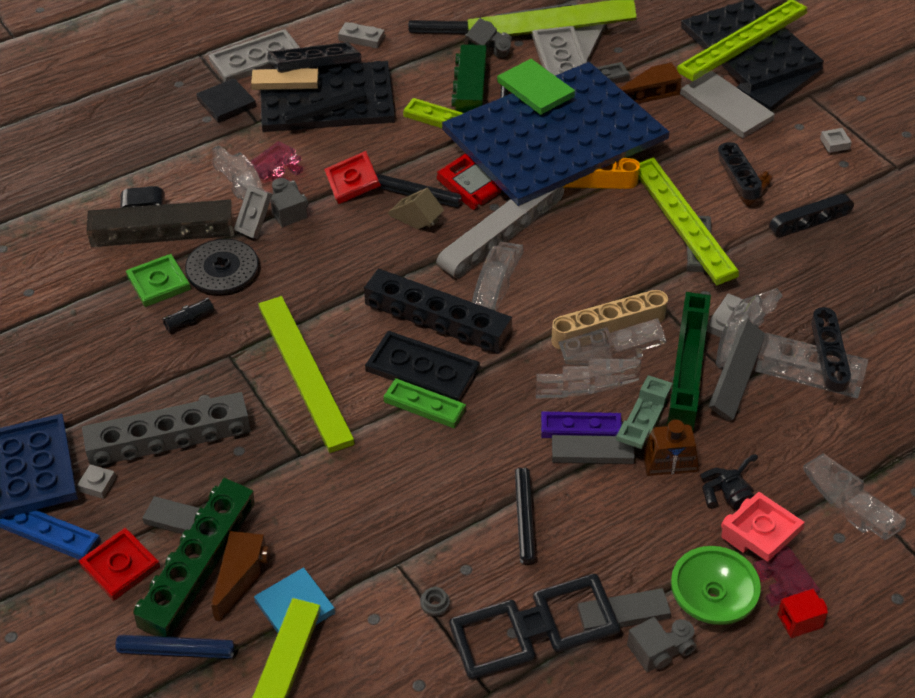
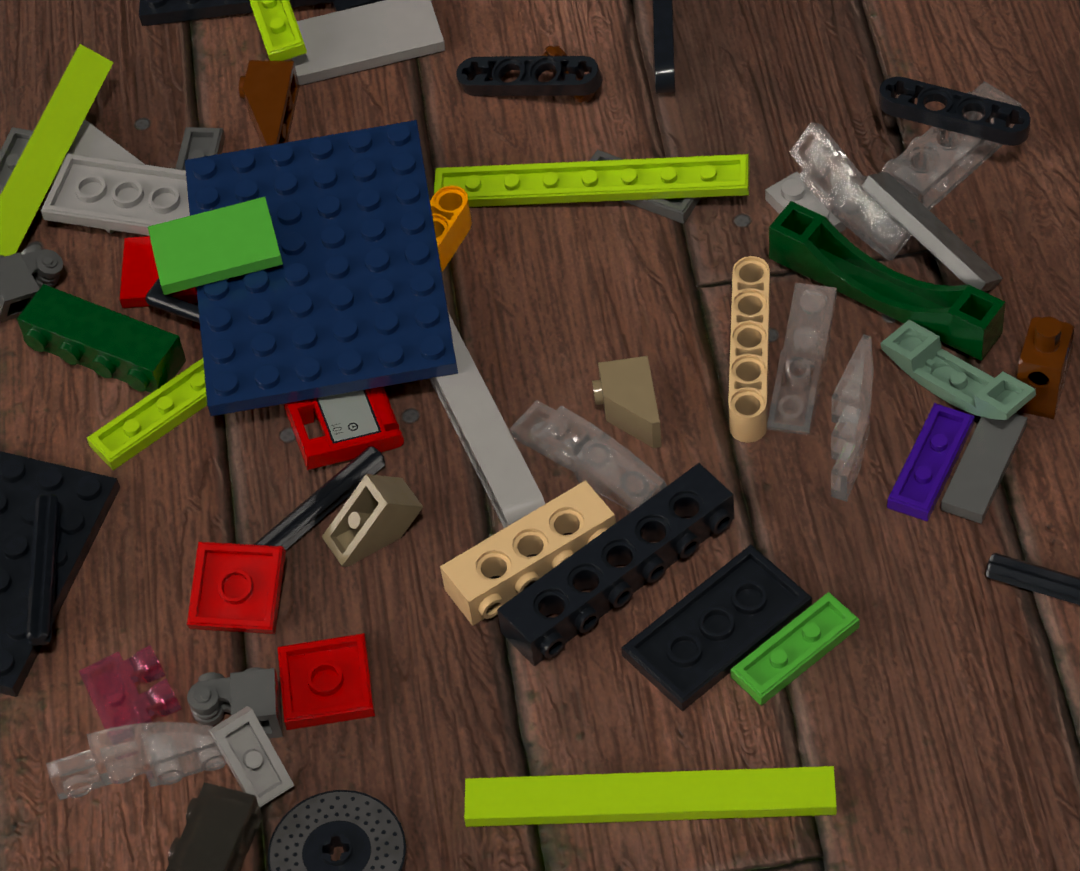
camera: 60 degrees left, 5 degrees up
(317, 229) = (325, 681): none -> red tile
(426, 270) = (505, 553): none -> tan brick
(548, 282) = (629, 398): none -> dark tan slope

